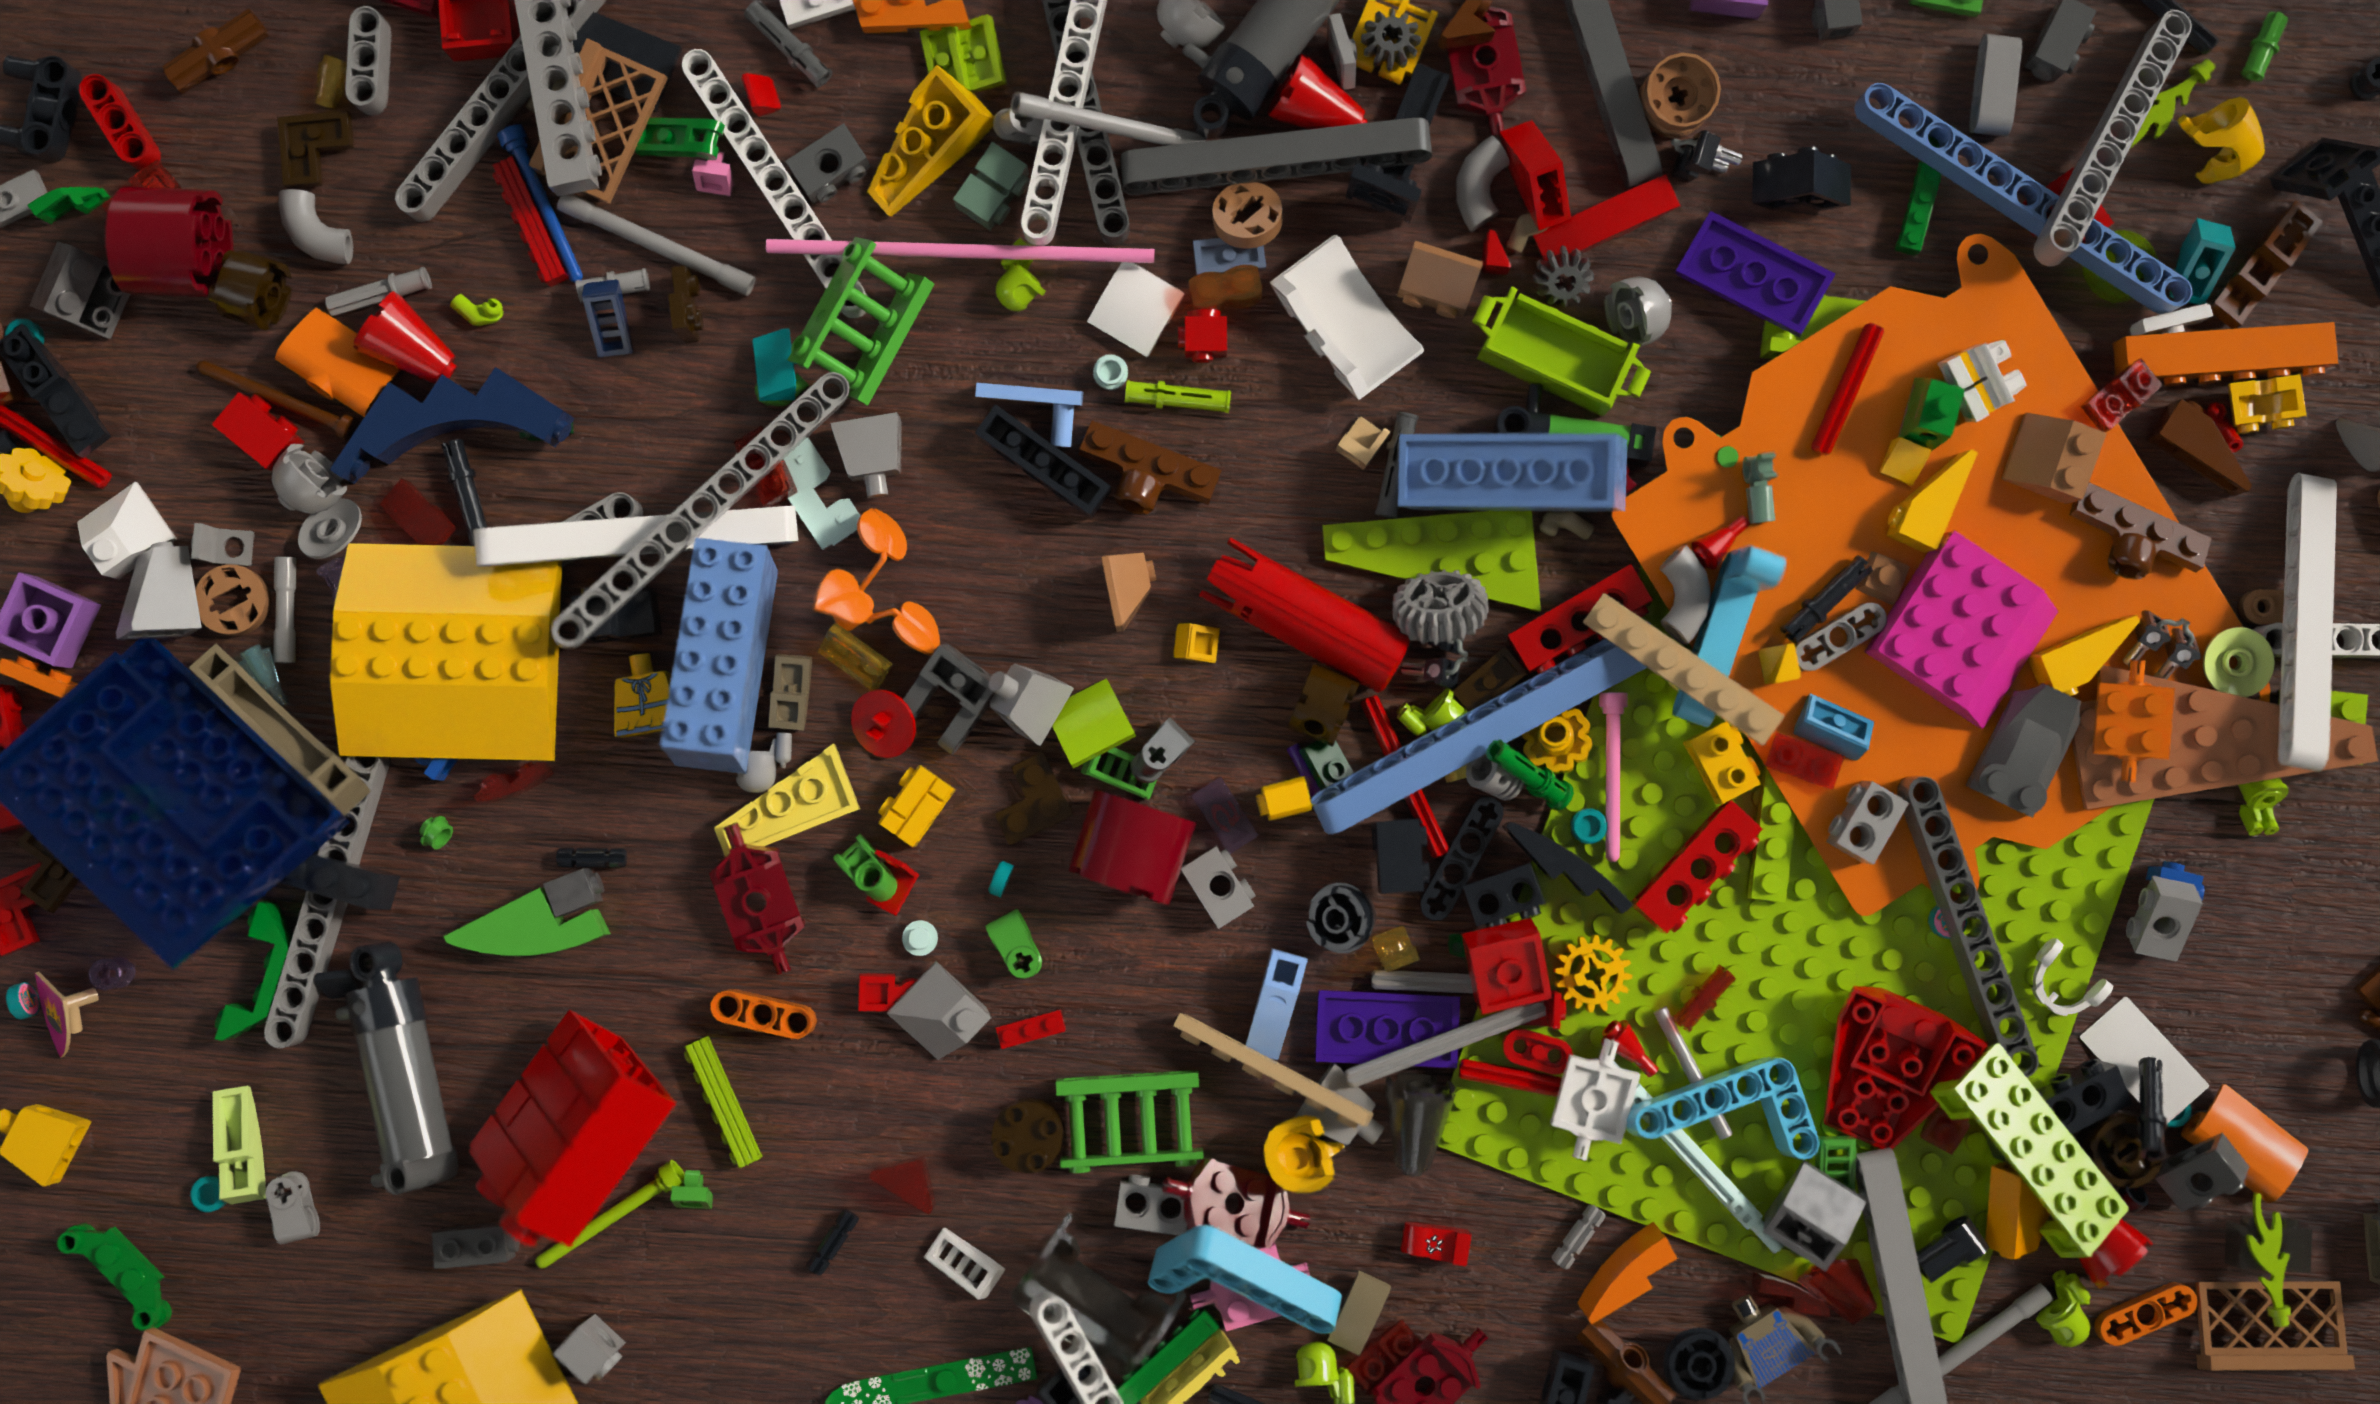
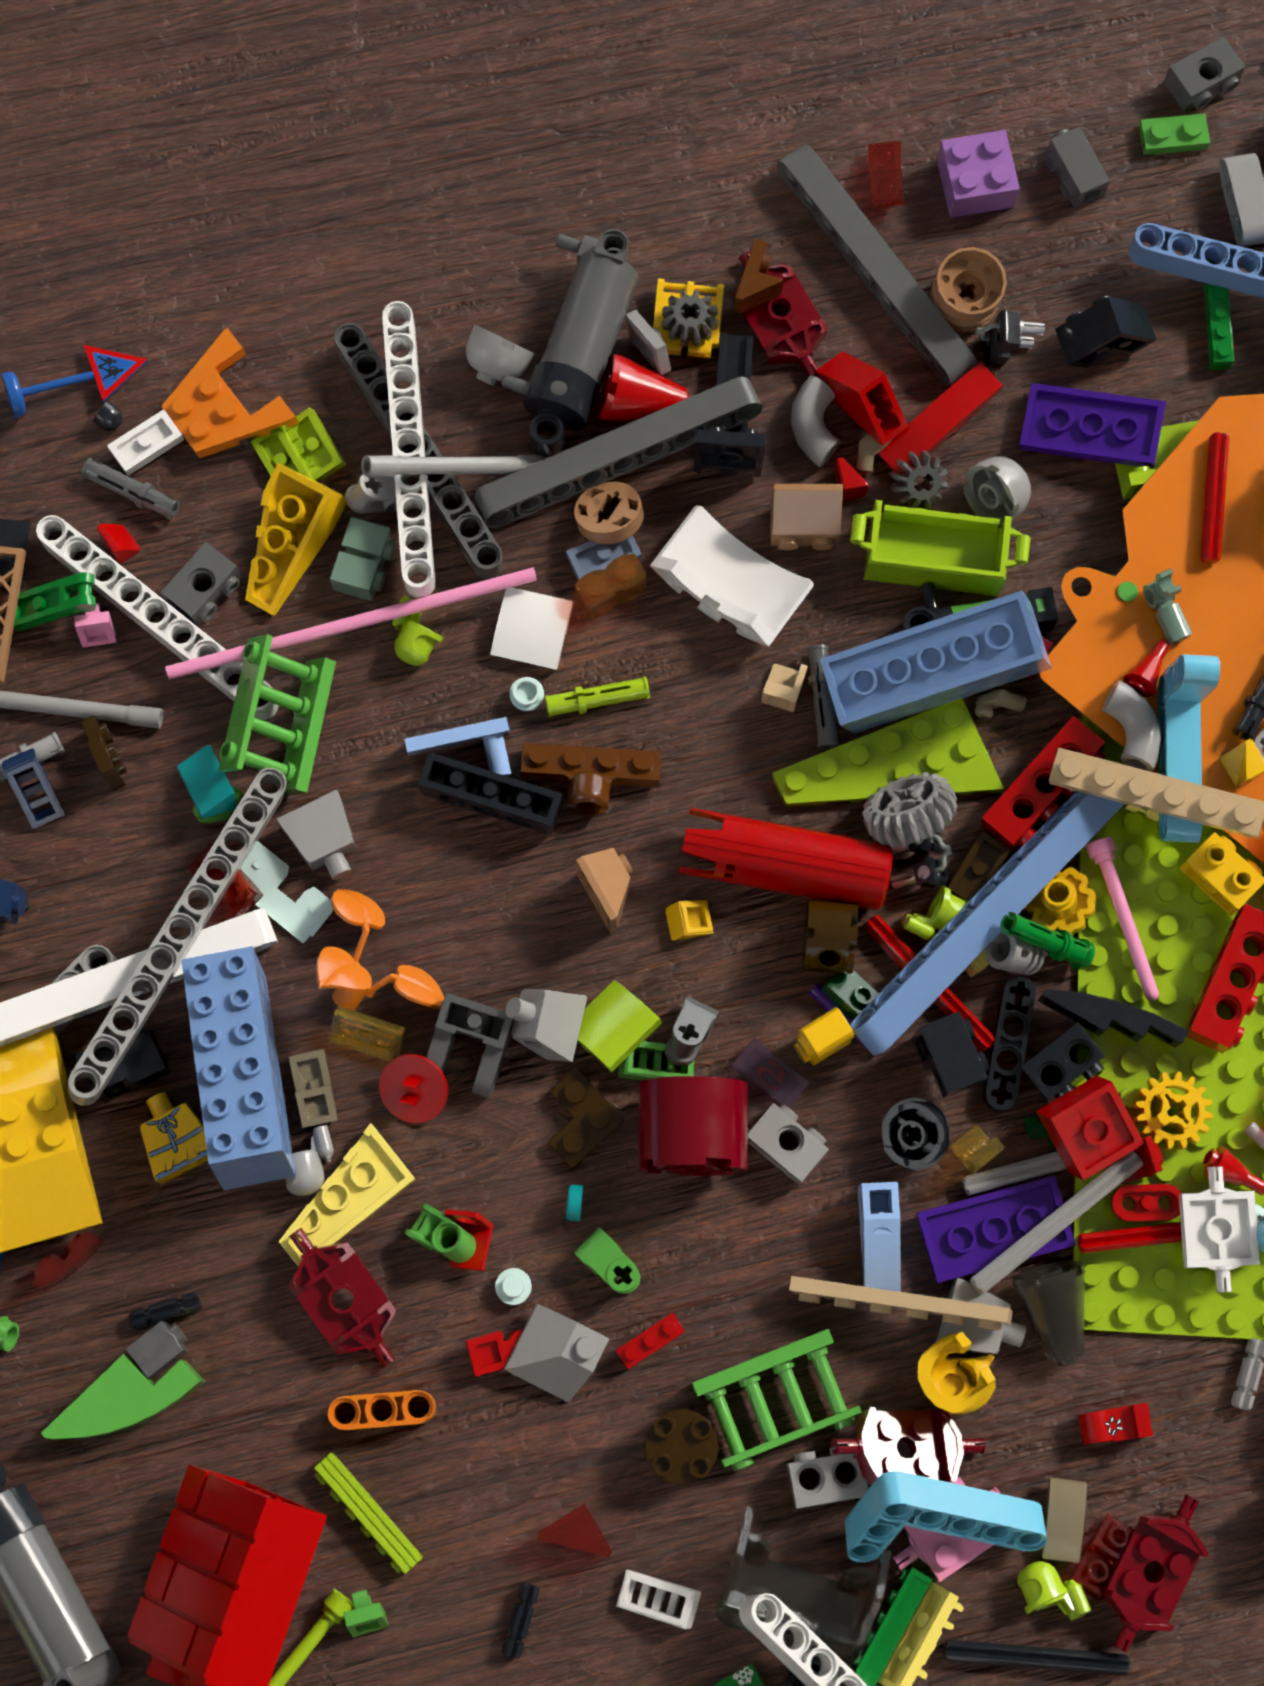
camera: 15 degrees left, 10 degrees down
(915, 805) = (469, 1157): yellow brick -> none
(1204, 335) = (604, 633): red brick -> none
(1588, 826) = (1119, 973): teal tile -> none

